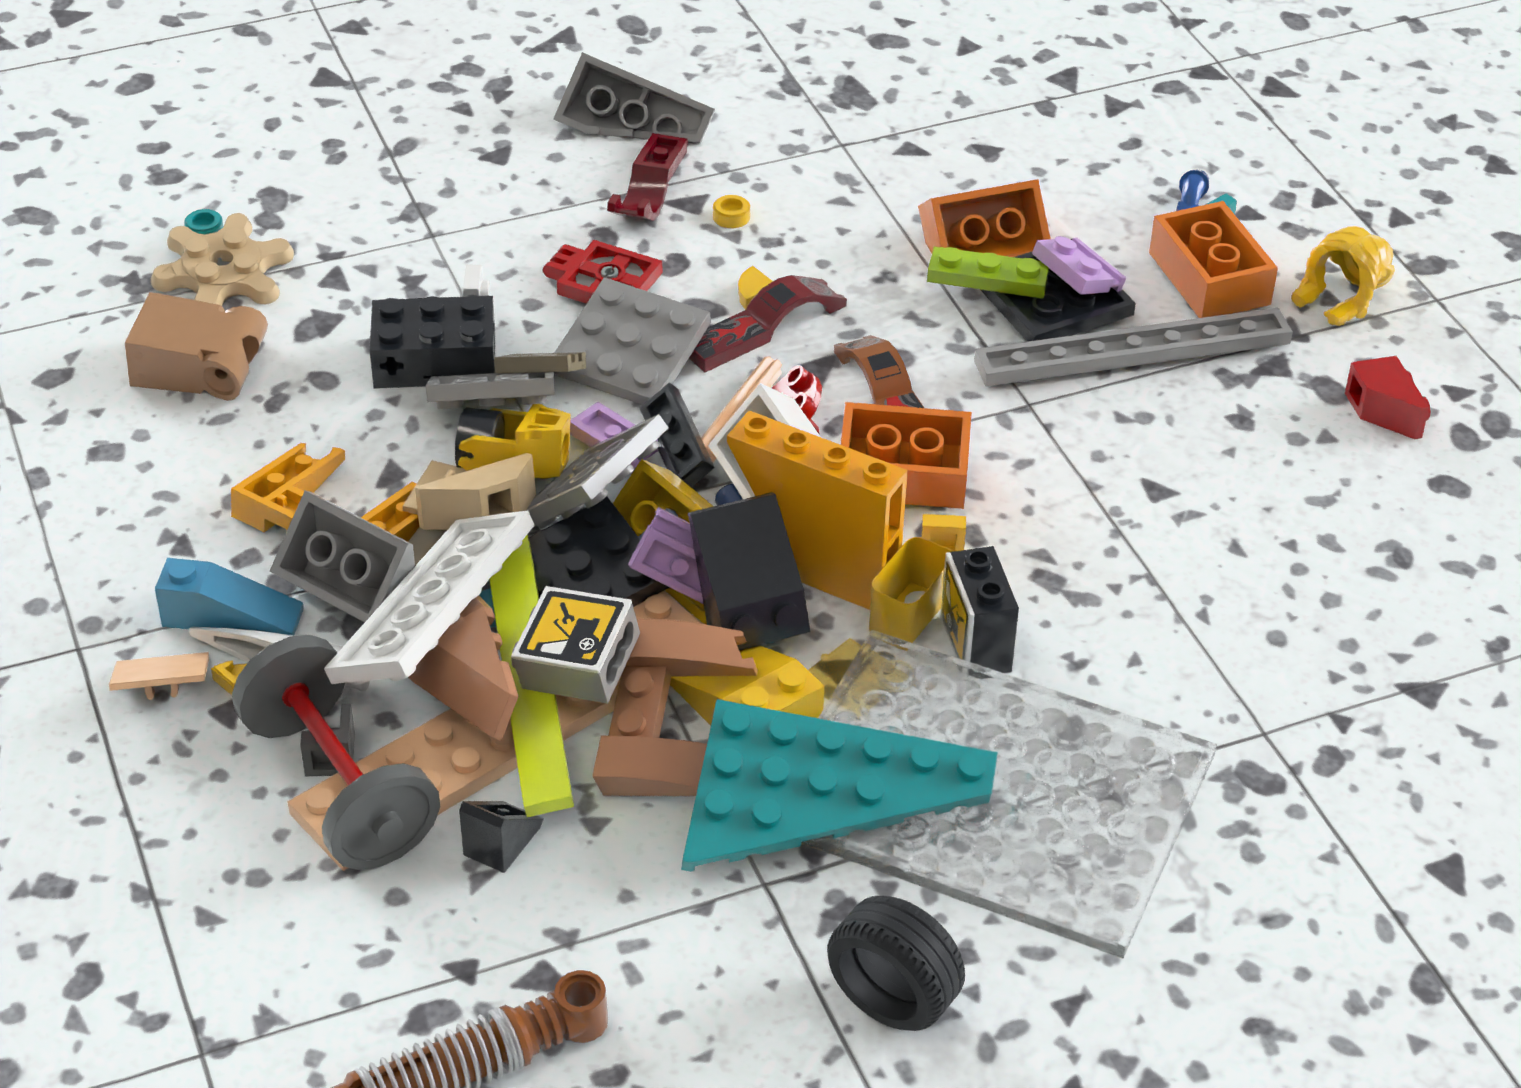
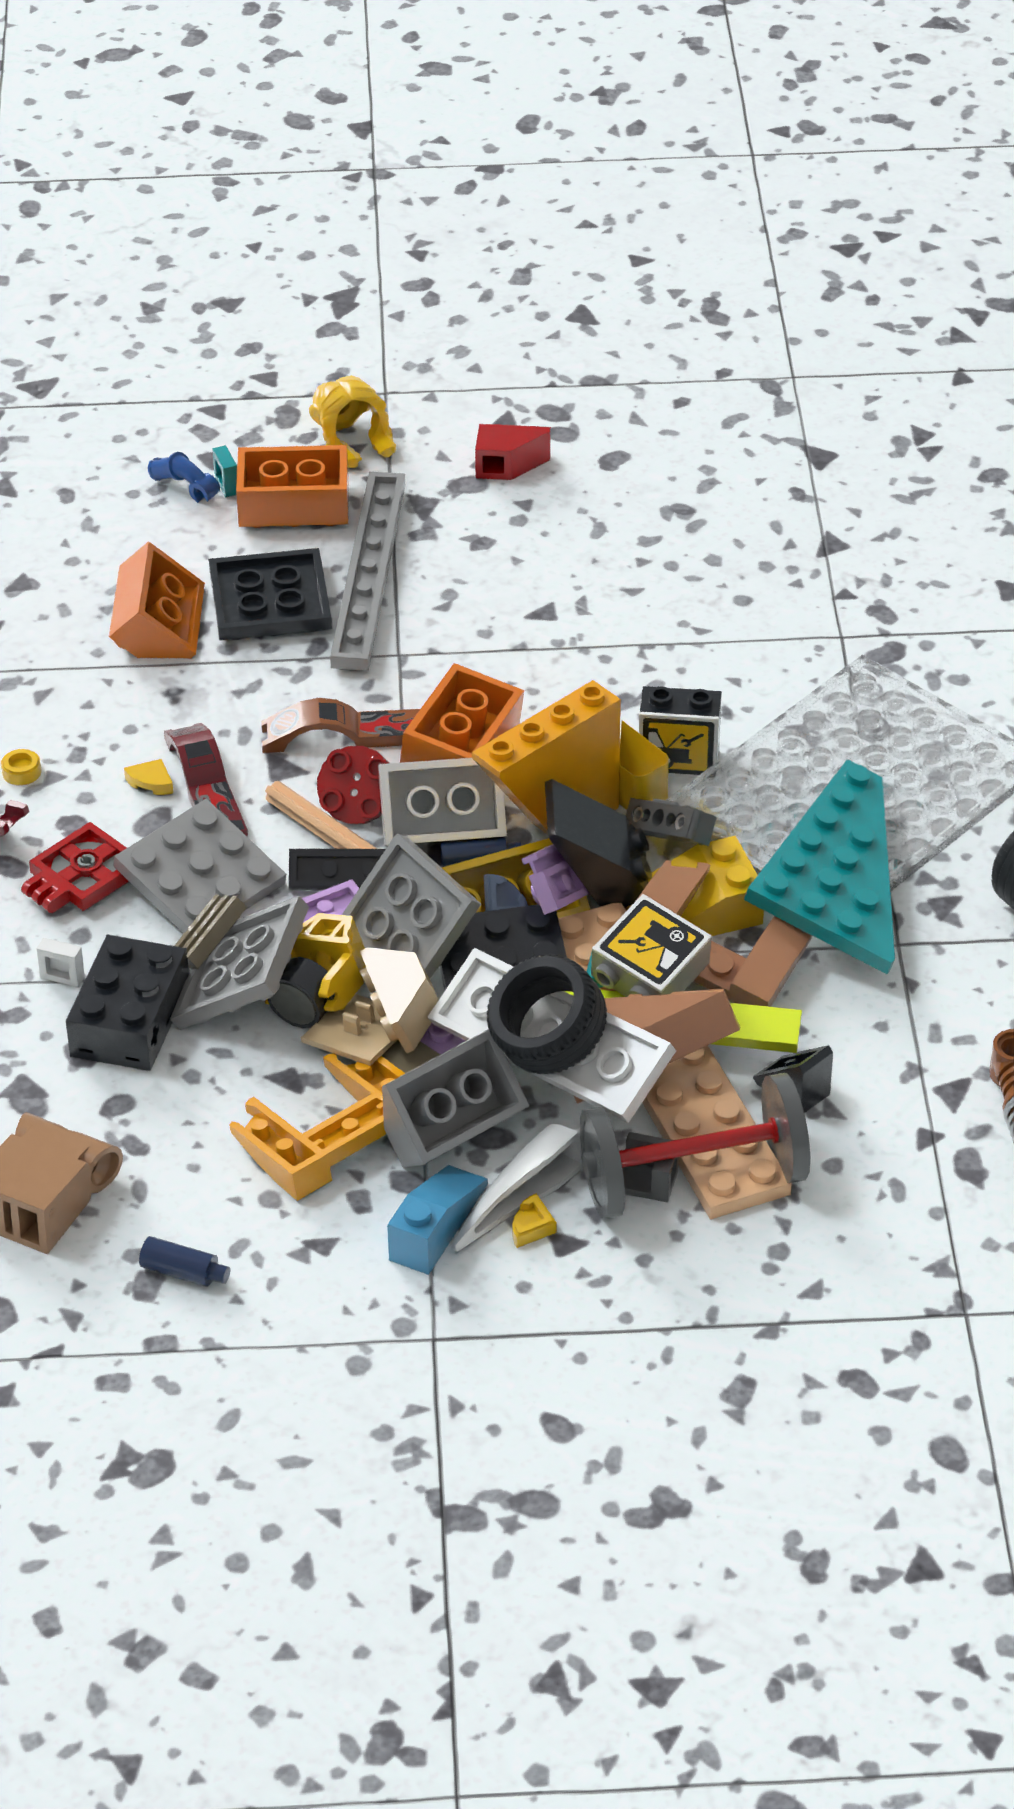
camera: 70 degrees left, 0 degrees up
(125, 458) = (182, 1262): none -> dark blue cylinder
(159, 671) = (515, 1267): light nougat piece -> none
(419, 566) = (568, 1041): none -> black tyre
(816, 629) = (671, 821): none -> dark grey piece
(988, 272) = (235, 618): lime plate -> none
(1078, 265) = (266, 559): lavender plate -> none

